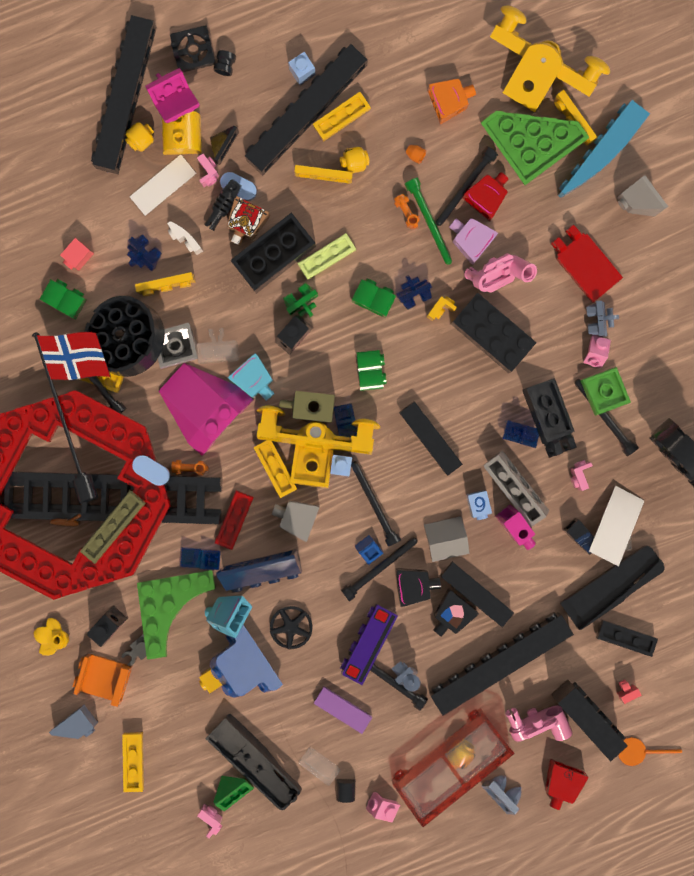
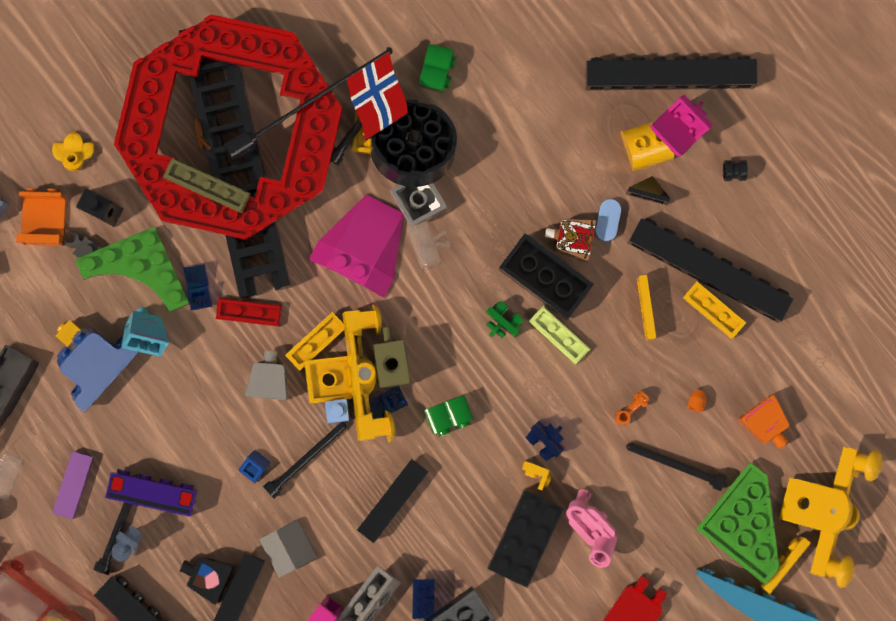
camera: 80 degrees right, 5 degrees down
(76, 255) = (487, 69): coral brick -> none
(139, 136) = (630, 102): yellow head -> none
(140, 255) = (504, 138): clear blue hips -> none
(151, 470) = (277, 209): light blue tile -> none
(162, 185) = (587, 140): white sticker -> none
(165, 284) = (481, 171): yellow plate -> none
(176, 39) = (748, 113): black piece -> none
(181, 235) = (539, 172): white slope -> none
(200, 468) = (294, 260): orange bar -> none
(209, 165) = (620, 183): bright pink bracket -> none
(223, 203) = (584, 209): black hinge -> none
(253, 378) = (406, 291): medium azure torso -> none
(260, 570) = (201, 354): dark blue slope -> none
(291, 627) = (148, 404): black wheel -> none
(293, 334) = (465, 322): black torso -> none
(301, 68) = (752, 254): light blue brick -> none
(351, 590) = (204, 458): black piece -> none
(354, 159) = (671, 336): yellow head -> none
(374, 298) = (527, 397): green brick -> none
(414, 188) = (659, 409): green piece -> none
(415, 585) = (228, 527): black torso -> none
(472, 238) = (622, 487): lavender torso -> none
(479, 504) = (334, 573): light blue brick -> none
(487, 195) = (673, 491): red torso -> none

